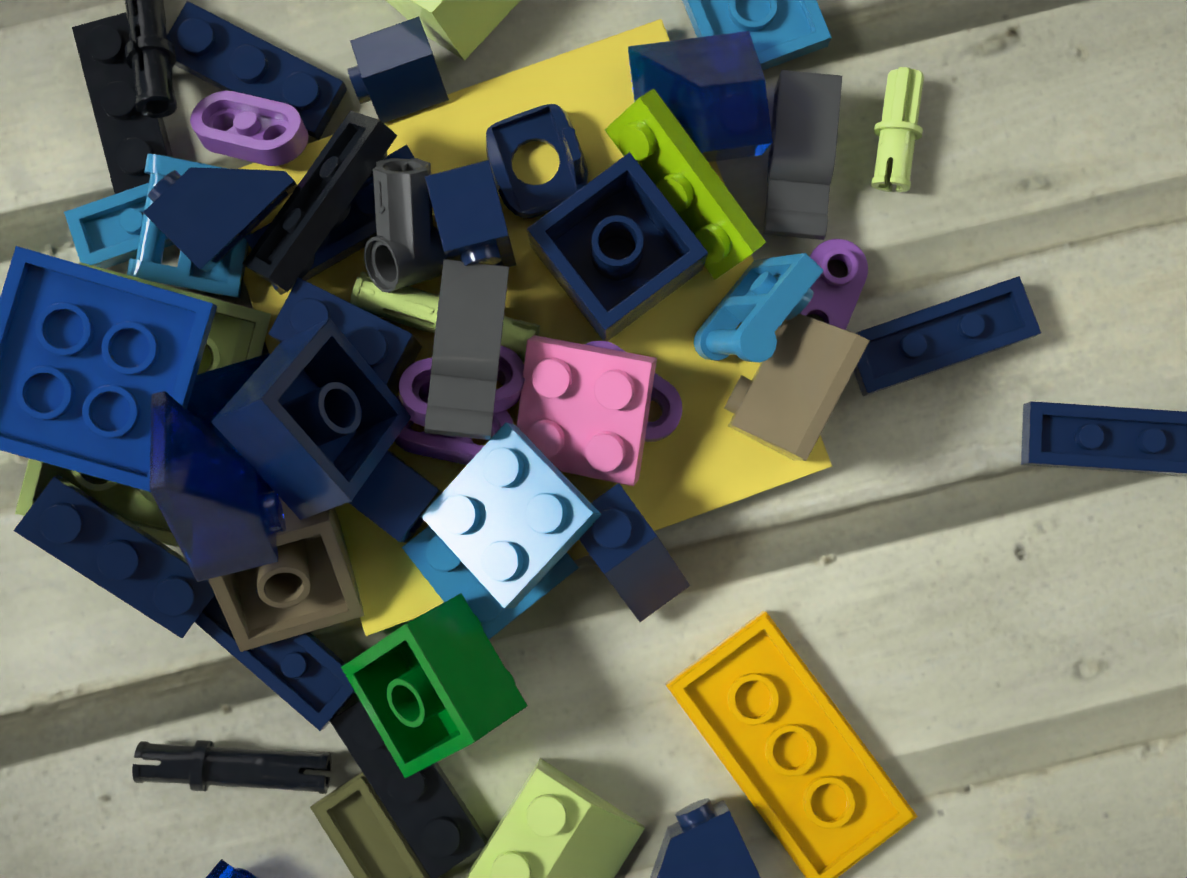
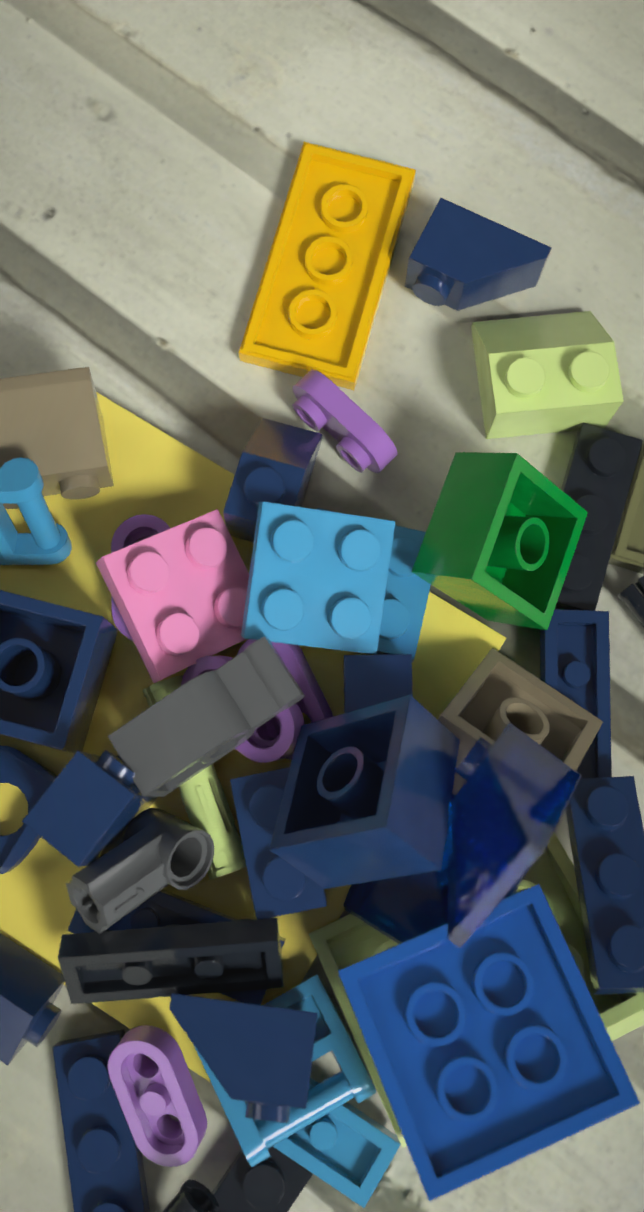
camera: 130 degrees left, 5 degrees down
(664, 642) = (360, 438): none -> medium lavender plate

